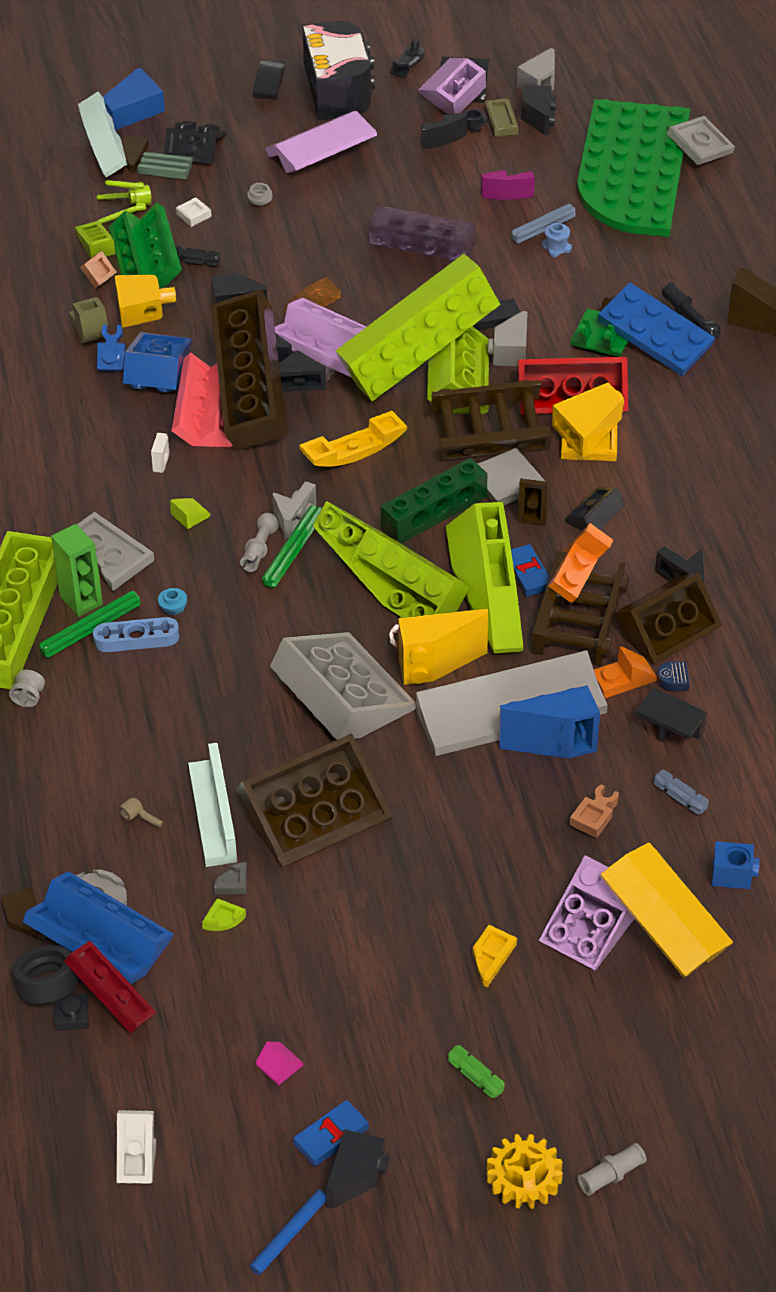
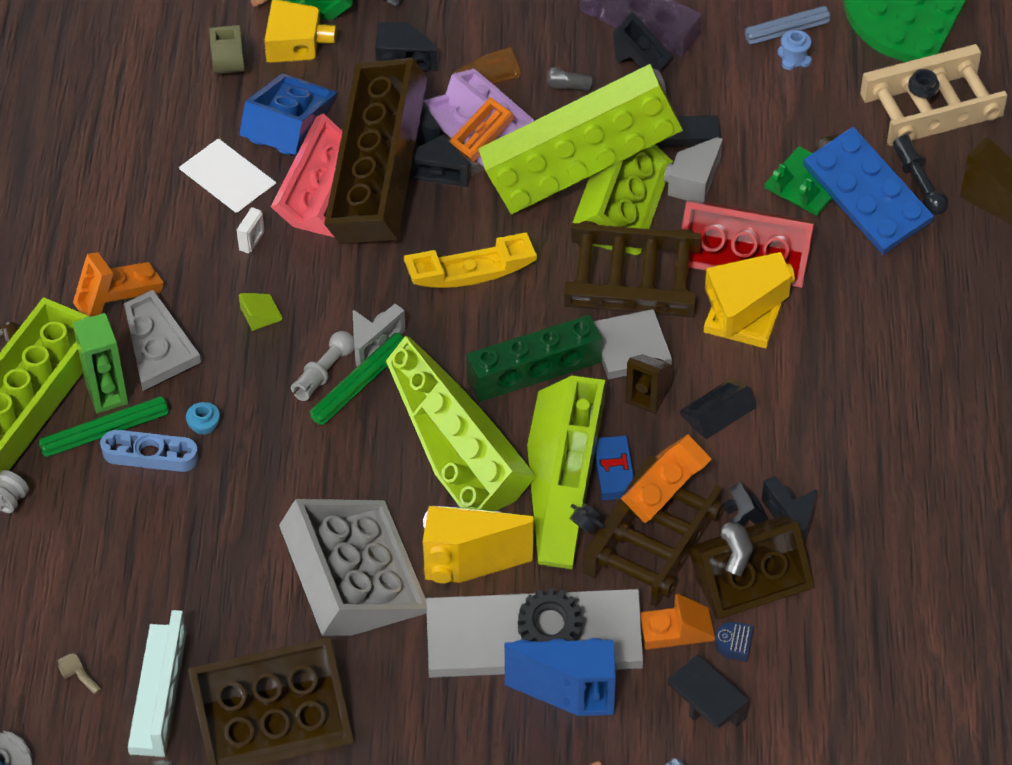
camera: 15 degrees right, 5 degrees up
(54, 512) = (102, 285): none -> orange bracket
(111, 354) = (239, 91): blue plate -> none
(121, 417) = (227, 175): none -> white sticker
(332, 340) = (485, 132): none -> orange tile
(375, 295) = (566, 80): none -> flat silver arm
(429, 254) = (639, 43): none -> black slope
(526, 606) = (586, 518): none -> black plate
(526, 672) = (549, 601): none -> black tyre
(646, 574) = (747, 504): none -> black tile
(660, 598) = (740, 546): none -> flat silver arm
(672, 243) = (923, 83): none -> black plate
(676, 234) = (947, 66): none -> tan fence

